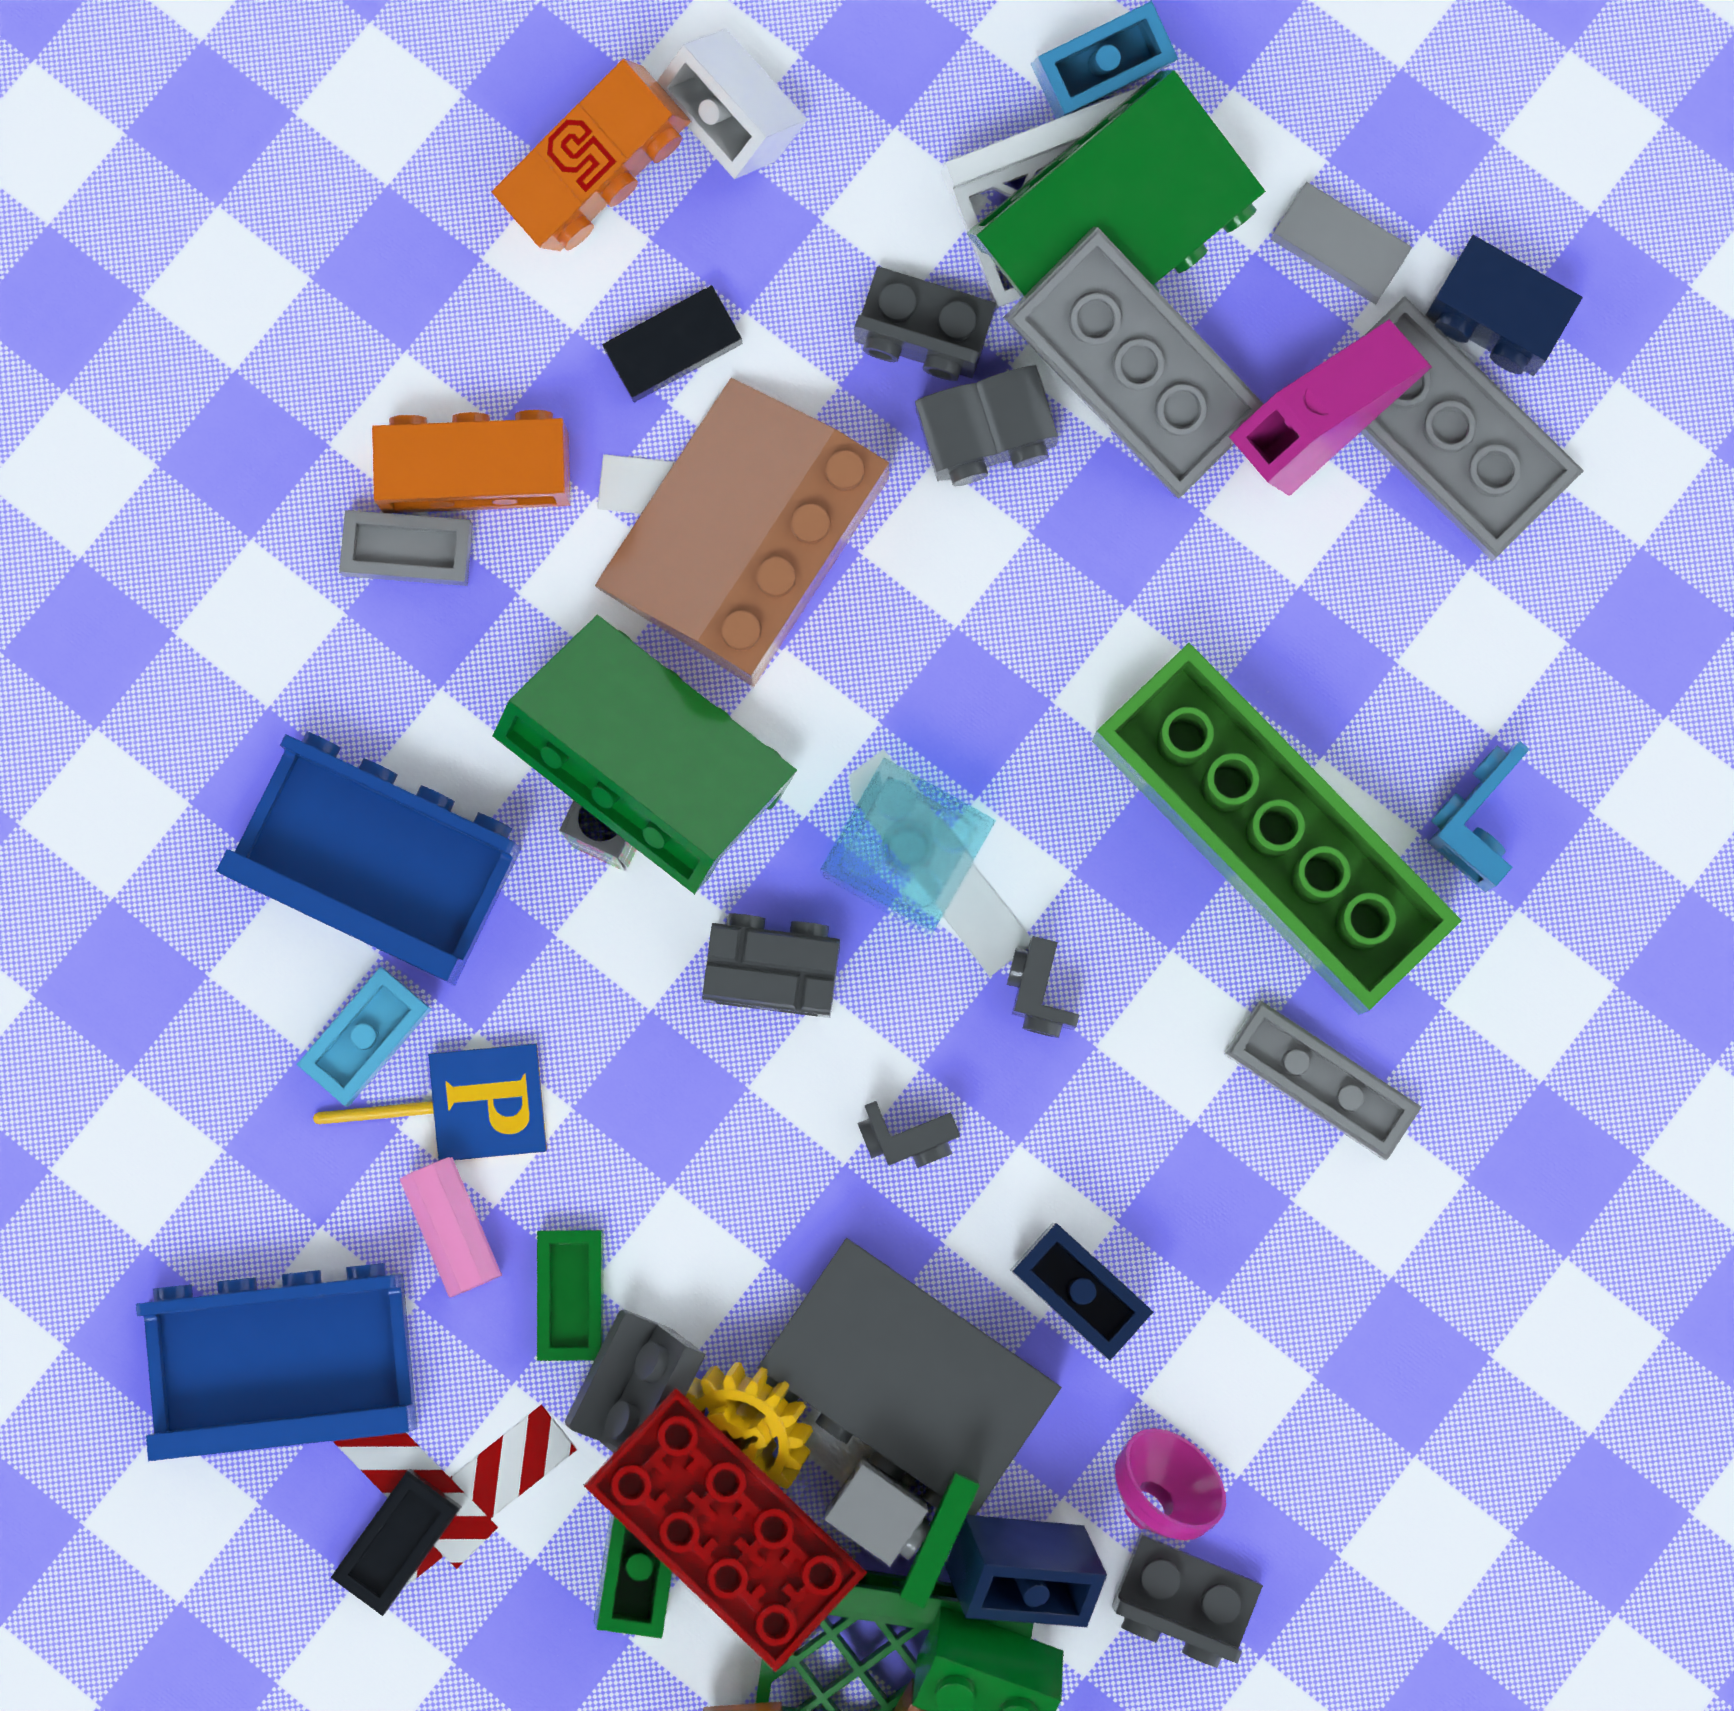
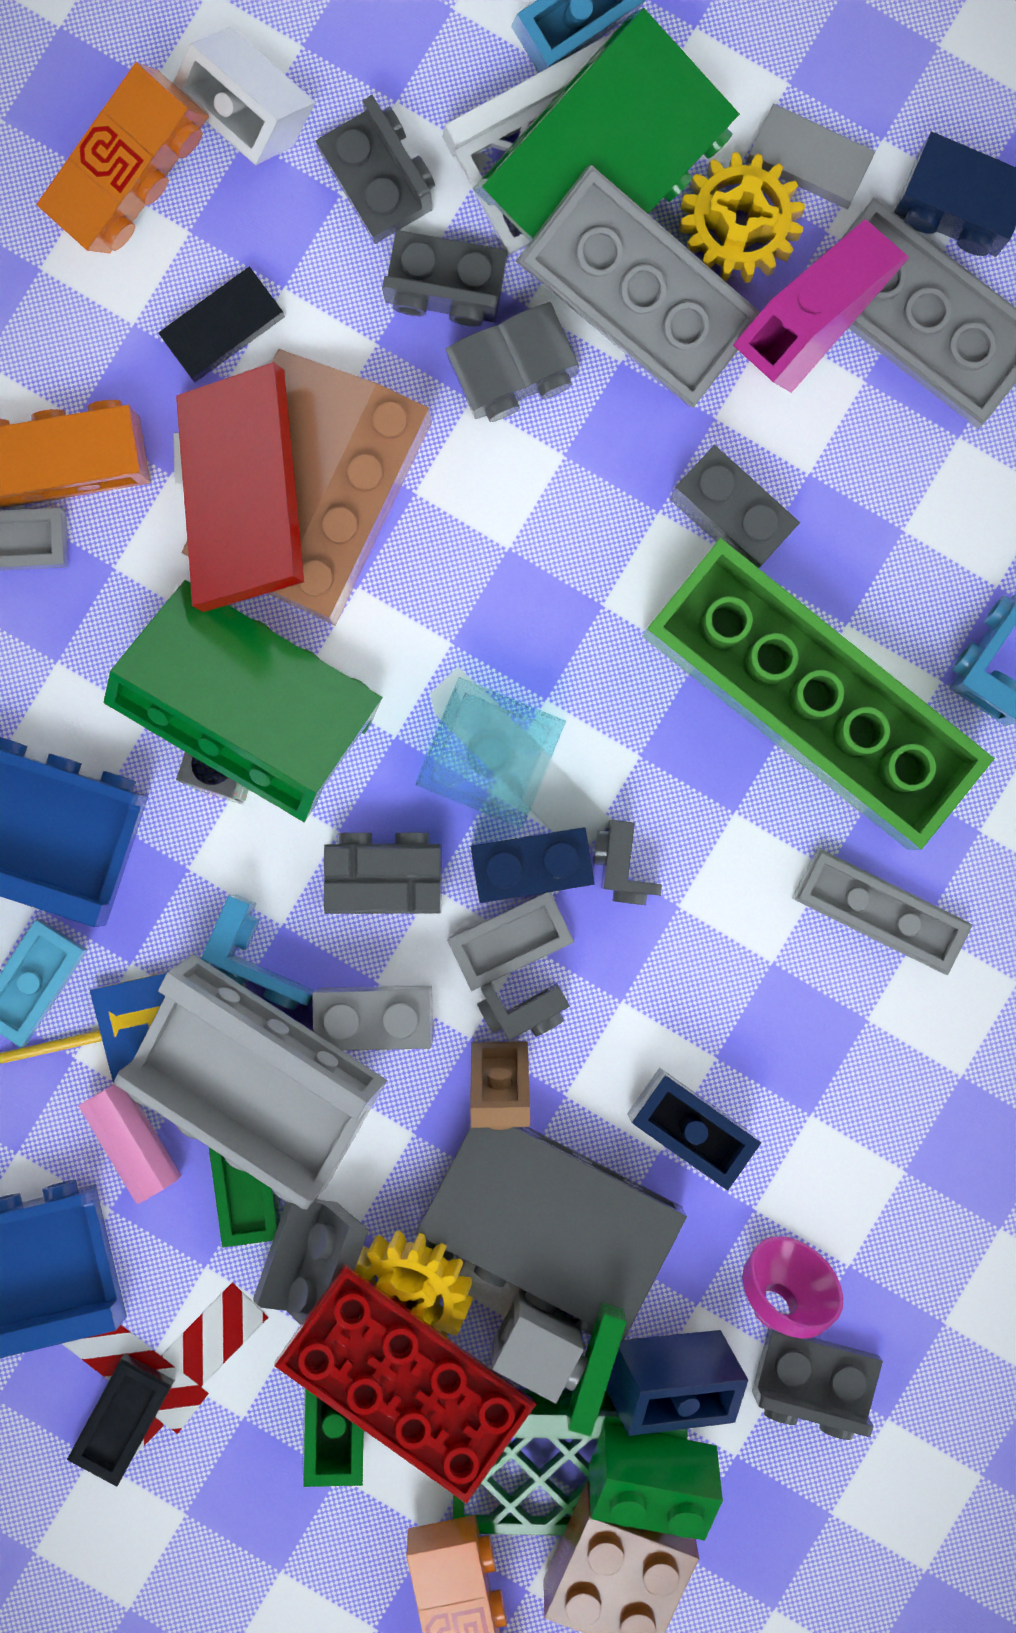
camera: 10 degrees left, 5 degrees up
(597, 1174) = (250, 1082): none -> light grey panel
(601, 1006) = (236, 930): none -> dark azure bracket
(670, 523) = (239, 488): none -> red tile
(740, 1122) = (374, 1017): none -> light grey brick
(864, 200) = (376, 171): none -> dark grey bracket
(871, 1213) = (499, 1085): none -> medium nougat plate
(903, 1059) = (510, 940): none -> light grey tile
(938, 976) = (532, 865): none -> dark blue brick
(1209, 613) = (733, 507): none -> dark grey brick
(1279, 306) = (763, 220): none -> yellow gear

